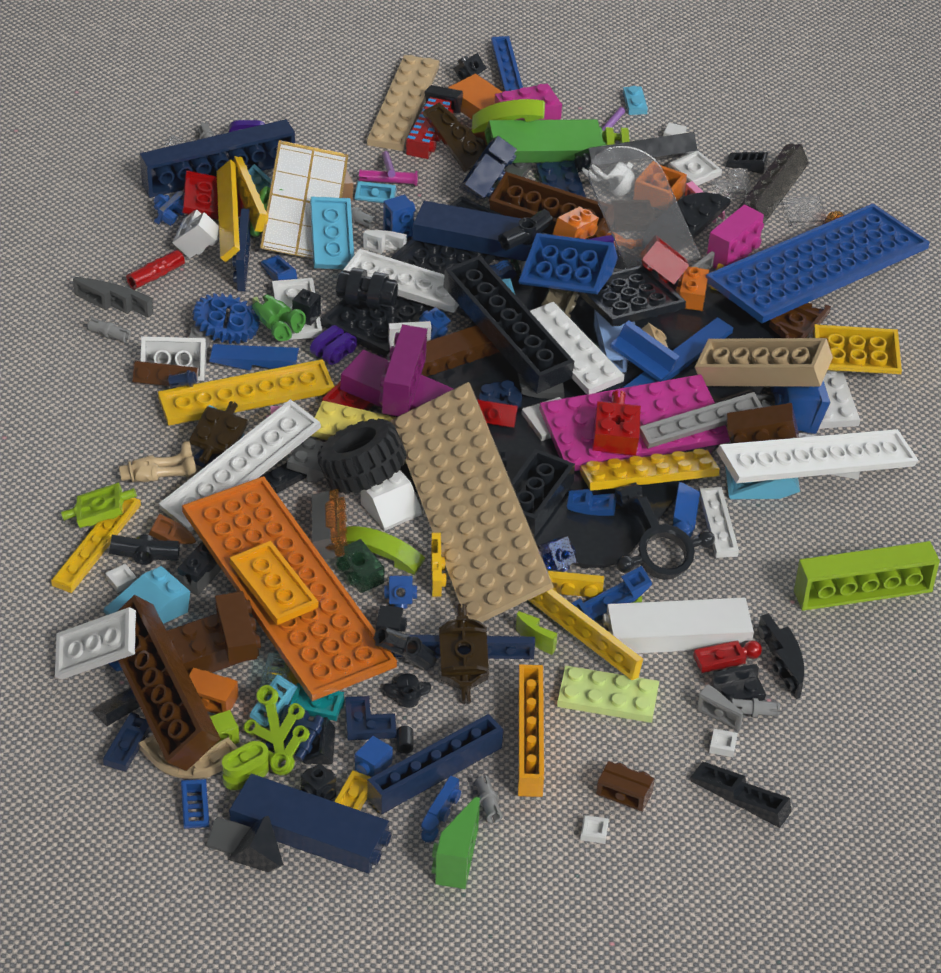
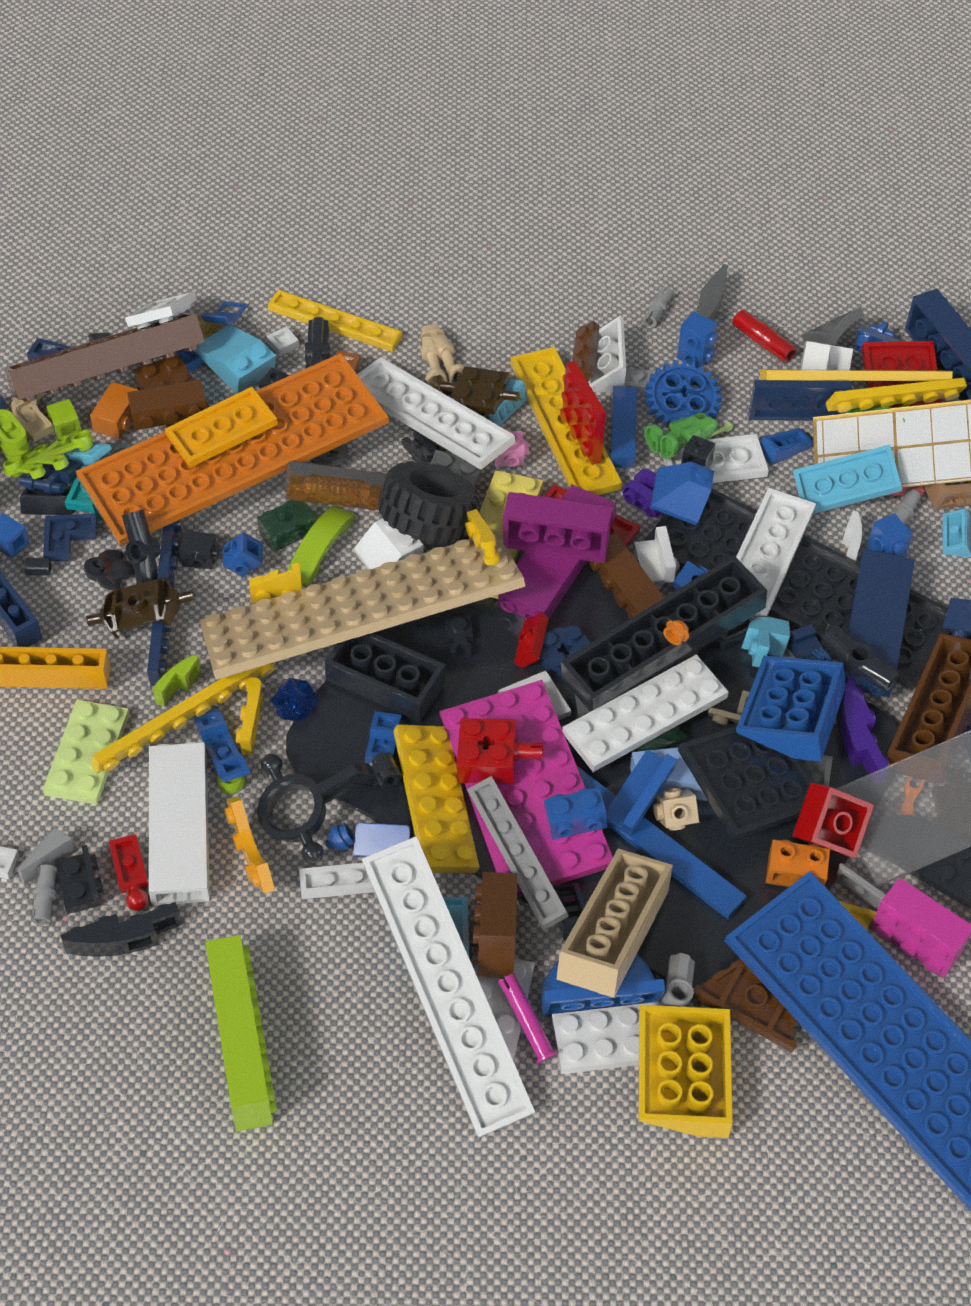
camera: 90 degrees right, 10 degrees up
(89, 613) = (225, 317): none -> blue piece
(99, 505) = (375, 311): lime plate -> none
(158, 225) = (833, 329): none -> dark grey plate
(167, 301) = (697, 340): none -> blue brick
(183, 379) = (566, 356): dark blue pin -> none
(269, 355) = (583, 413): none -> red plate
(344, 315) = (682, 490): none -> blue slope
(358, 287) = (731, 507): black piece -> none
(418, 409) = (482, 537): none -> yellow plate
(521, 303) = (676, 632): none -> orange plate
(576, 224) = (880, 715): orange brick -> none
(673, 380) = (575, 813): none -> blue brick
(718, 576) = (257, 868): none -> light orange plate
(833, 428) = (527, 1018): none -> dark pink pin

